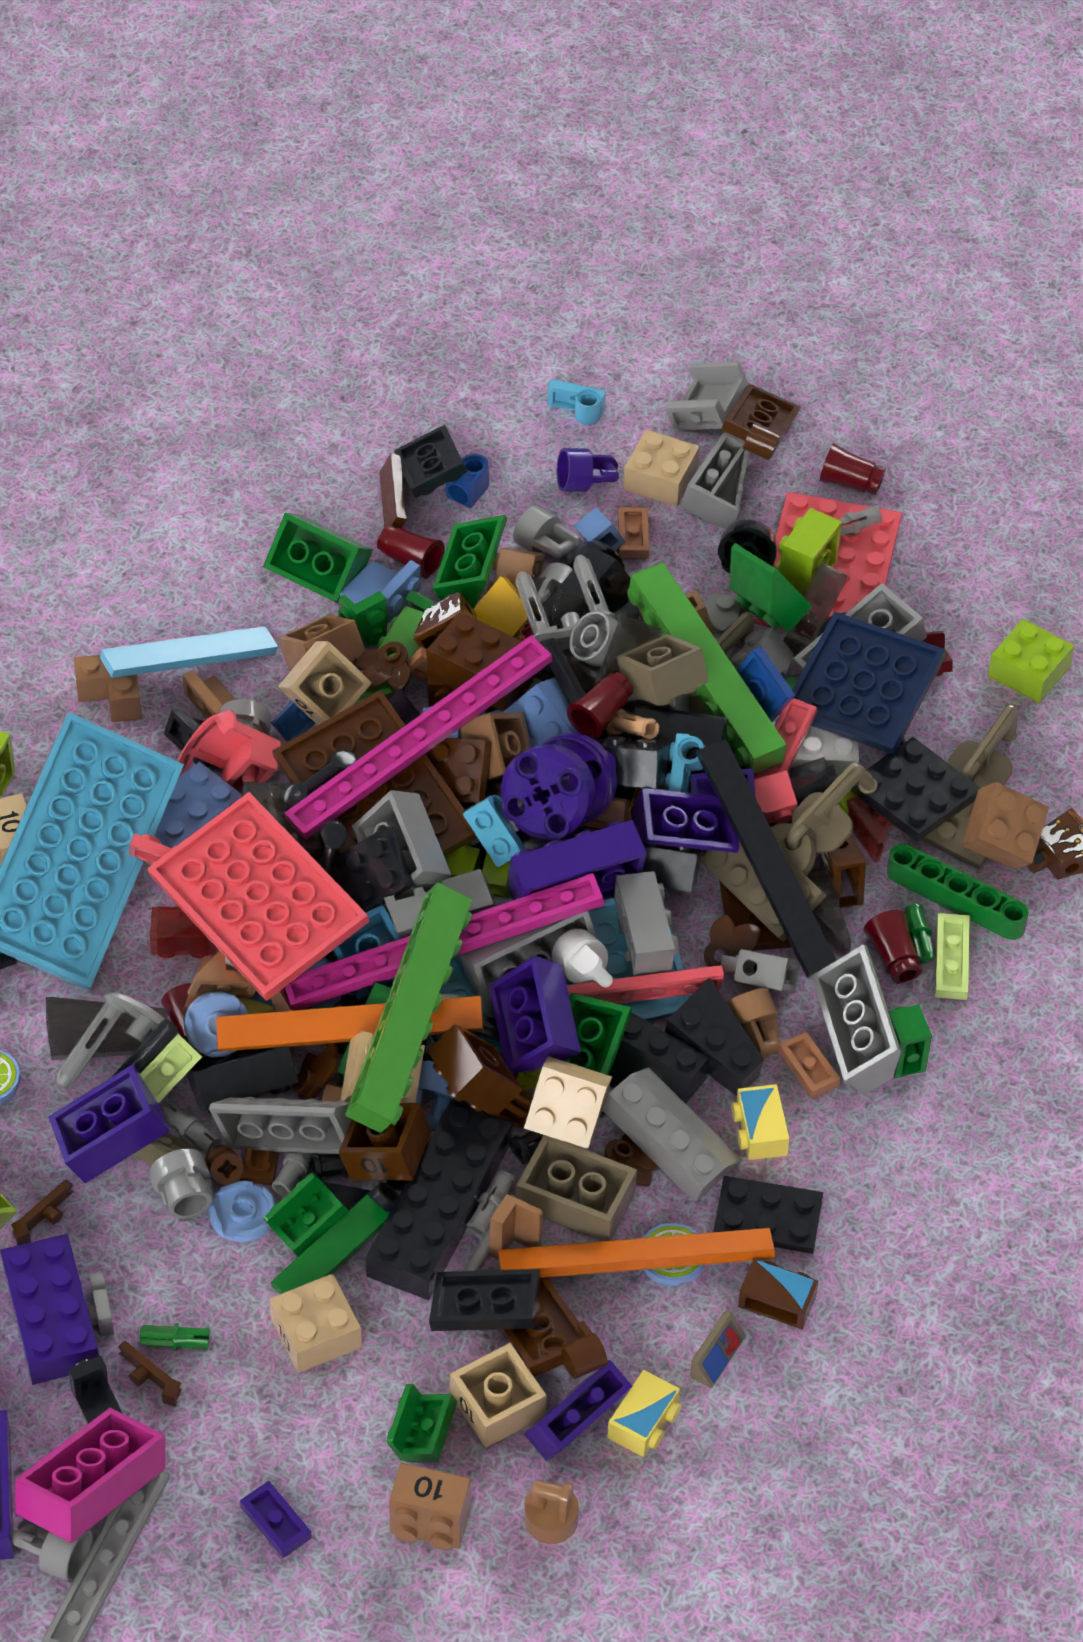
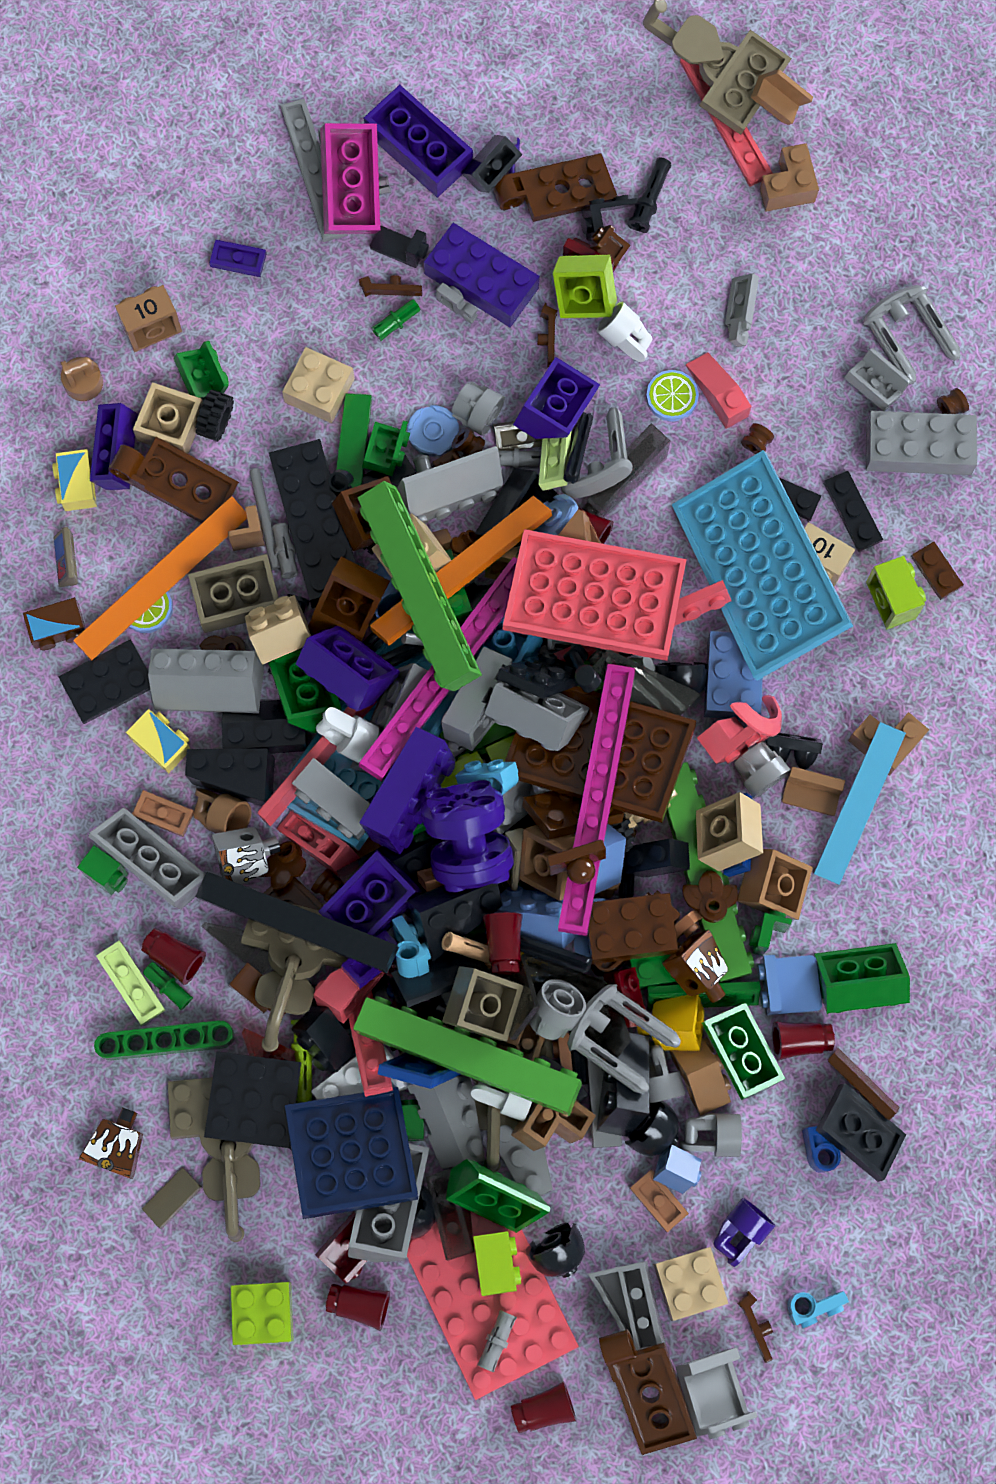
camera: 140 degrees right, 25 degrees up
(297, 791) = (634, 740): black bar -> none
(443, 1359) = (214, 415): none -> black tyre
(485, 1300) = (224, 467): black plate -> none
(488, 681) = (578, 861): none -> reddish brown tile
(635, 418) = (759, 1330): none -> reddish brown piece
(688, 931) = (317, 842): none -> coral slope
(705, 906) = (327, 885): none -> reddish brown wheel
(943, 615) = (359, 1304): none -> dark red plant
(1005, 826) = (162, 1114): medium nougat brick -> none
(1046, 783) = (172, 1198): none -> dark tan slope

